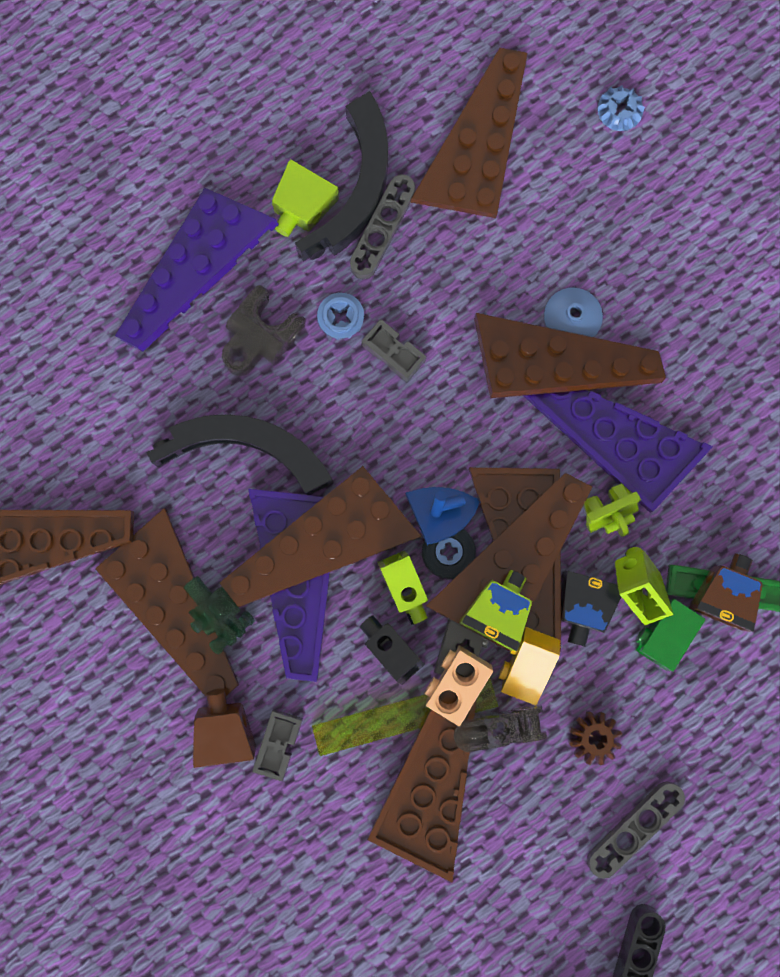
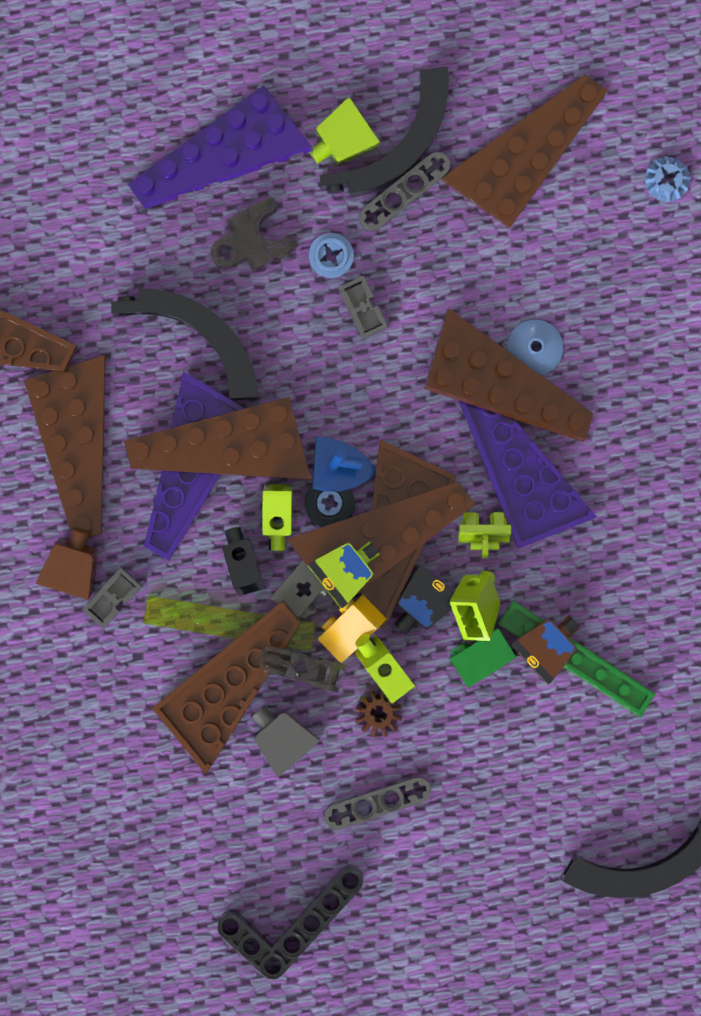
camera: 25 degrees right, 5 degrees up
(216, 613) = (109, 465): clear green piece -> none
(465, 687) = (286, 619): light nougat brick -> none
(513, 810) = (282, 739): none -> dark grey torso
(569, 684) = (378, 662): none -> lime torso

